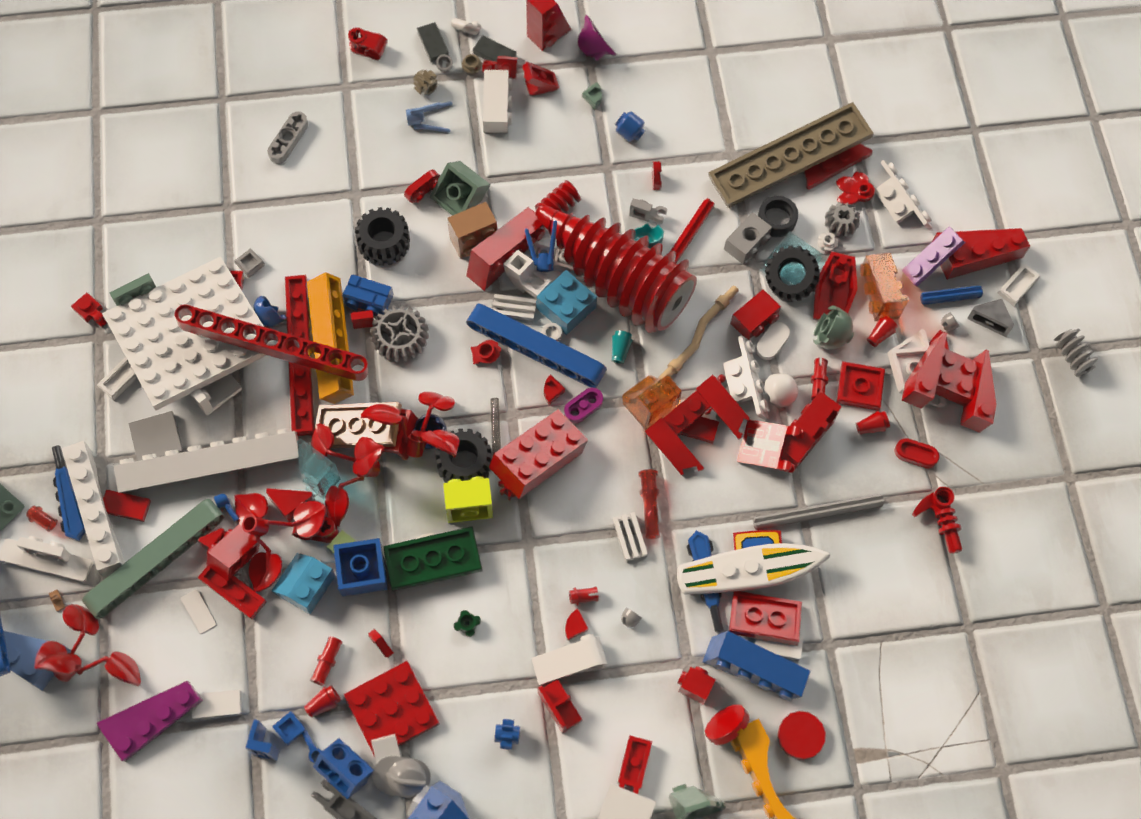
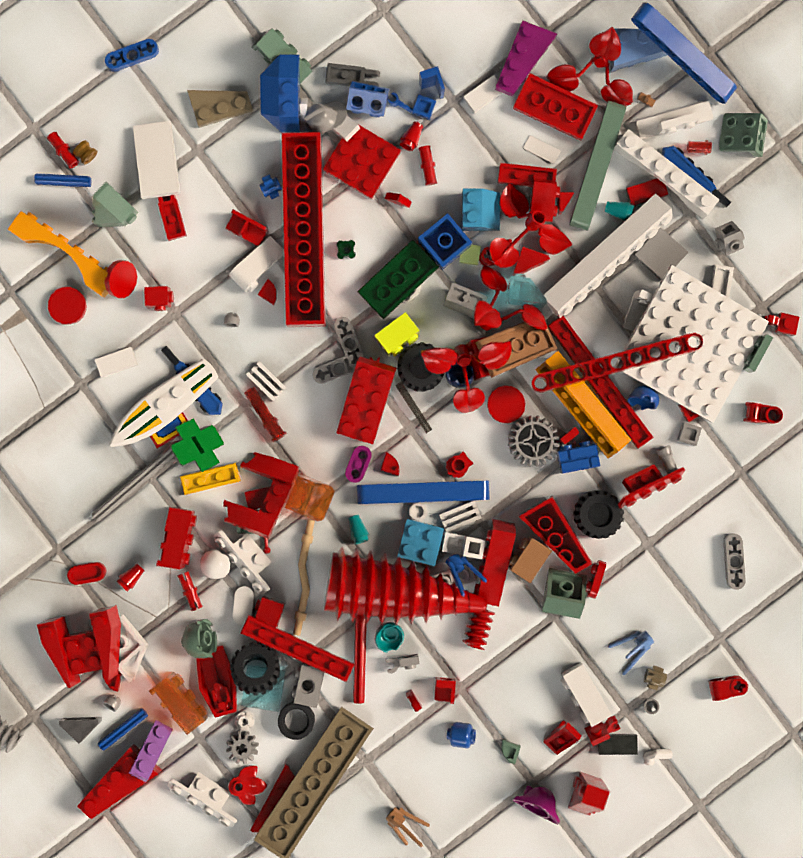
camera: 155 degrees right, 20 degrees up
(80, 410) = (732, 240): none -> light grey brick
(153, 644) = (555, 107): none -> red plate
(164, 501) = (621, 210): none -> teal cone
(172, 243) = (759, 413): none -> red piece
(222, 500) = (578, 236): blue hand -> none
(285, 254) = (665, 454): none -> light grey pin
(321, 237) = (645, 482): none -> red bracket
(377, 498) = (463, 299): none -> light grey hinge
(403, 382) = (506, 404): none -> red tile
(432, 41) = (675, 723): pearl dark grey tile -> none
(432, 245) = (554, 529): none -> red wedge
(471, 64) = (629, 720): dark tan plate -> none
(497, 667) = (303, 229): none -> red brick
(535, 511) = (346, 360): none -> light grey beam
(582, 595) = (272, 318): red pin -> none
(620, 171) = (445, 689): none -> red panel
(731, 92) = (396, 819): none -> medium nougat plant
(737, 511) = (199, 447): none -> green piece
(741, 474) = (210, 479): none -> yellow tile
(742, 269) = (297, 648): none -> red tile
(756, 665) = (122, 333): blue wedge -> none
(764, 445) = (202, 507): flag -> none
(765, 618) = (134, 375): tile -> none
(860, 386) = (156, 606): red tile -> none
(883, 329) = (162, 662): red cone -> none
(945, 514) = (40, 531): red piece -> none
(1018, 284) = (73, 771): white tile -> none

